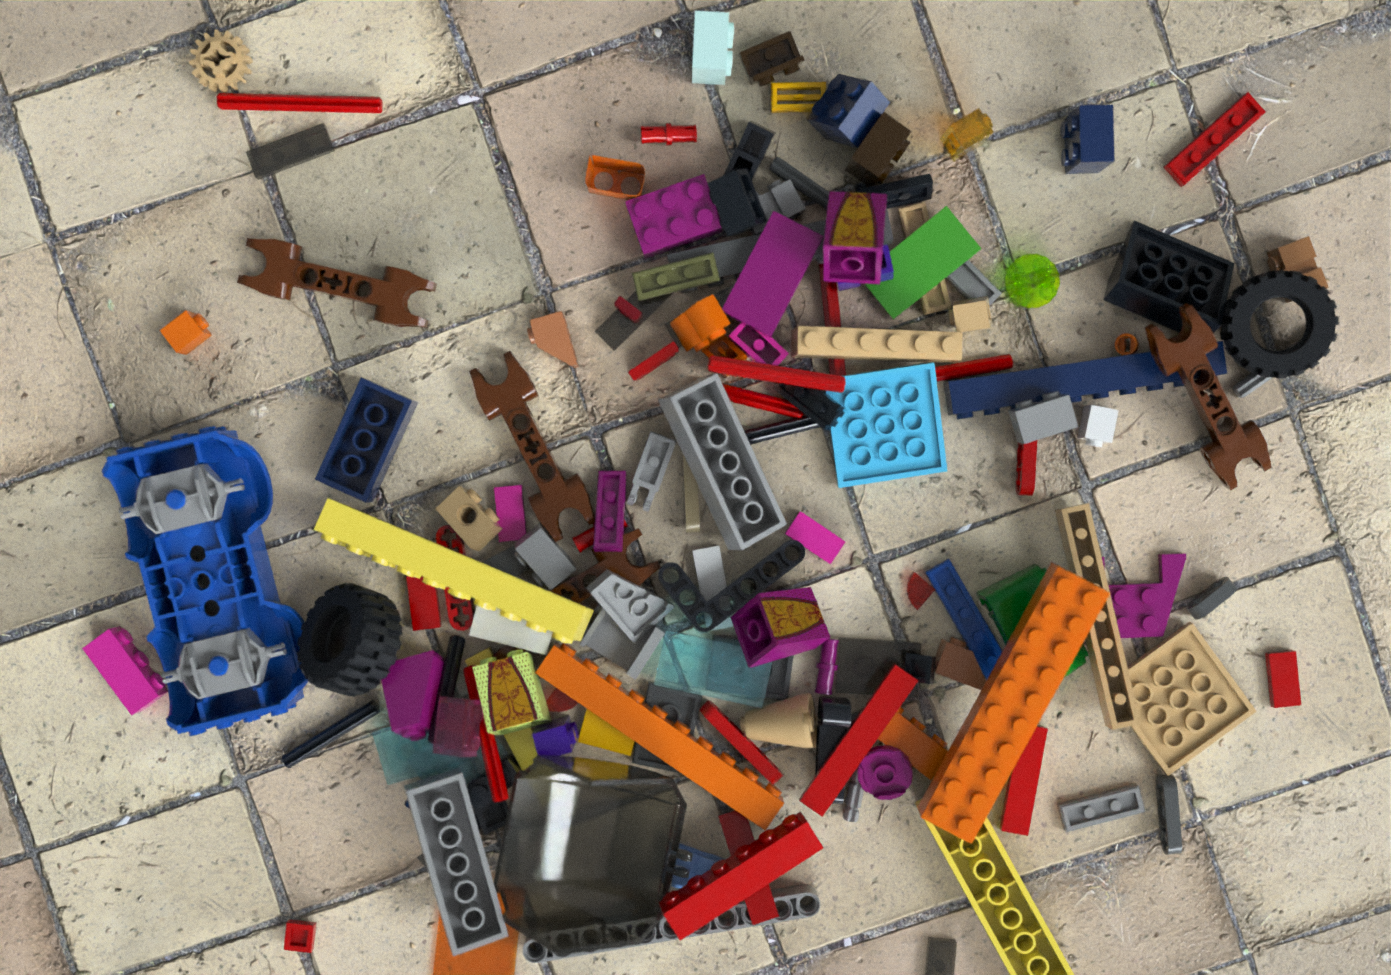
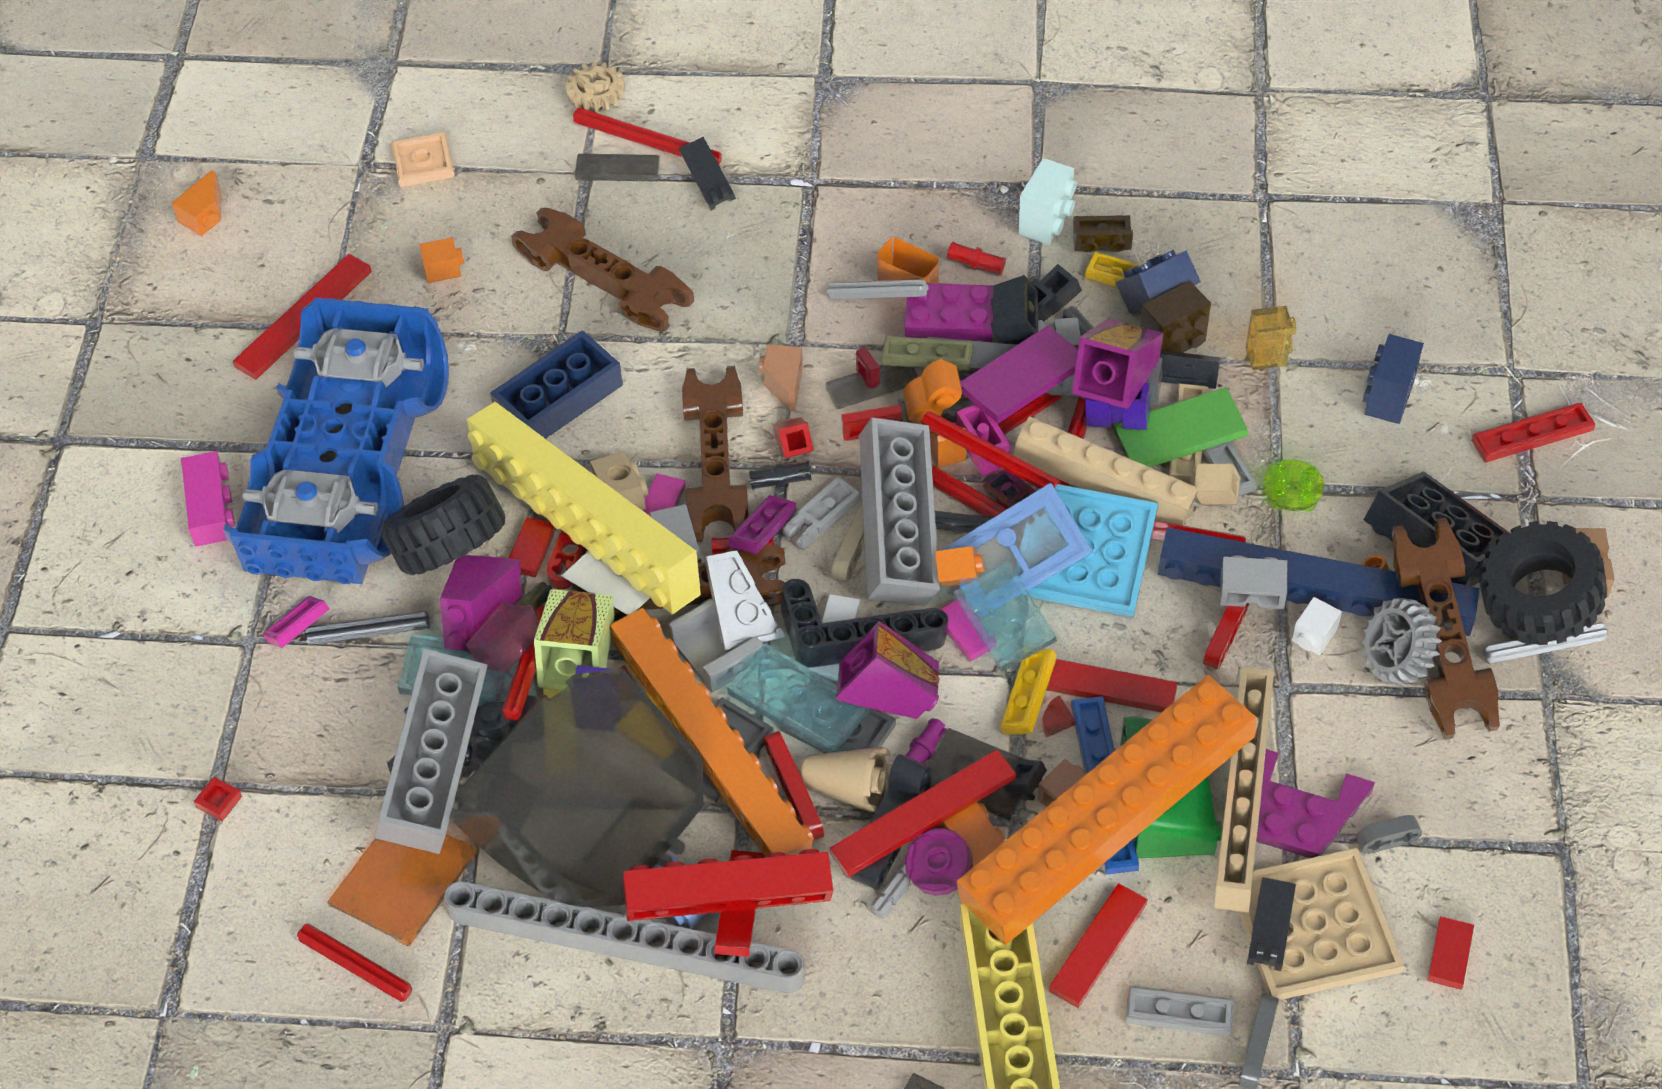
camera: 25 degrees right, 35 degrees down
(95, 440) = (286, 329): none -> red tile
(102, 213) = (422, 159): none -> light nougat tile
(270, 755) = (295, 621): none -> dark pink tile
(379, 130) = (706, 173): none -> black hinge
(592, 402) = (793, 437): none -> red brick
(599, 447) = (780, 475): none -> black pin
(600, 218) = (878, 289): none -> light grey axle
(794, 496) = (959, 565): none -> orange brick
(835, 460) = (1032, 536): none -> medium blue door
(848, 525) = (1005, 616): none -> clear light blue plate
(889, 579) = (1028, 693): none -> yellow tile
(951, 544) = (1113, 685): none -> red tile
(1153, 730) = (1271, 923): none -> black hinge
(1174, 430) = (1397, 649): none -> light grey gear

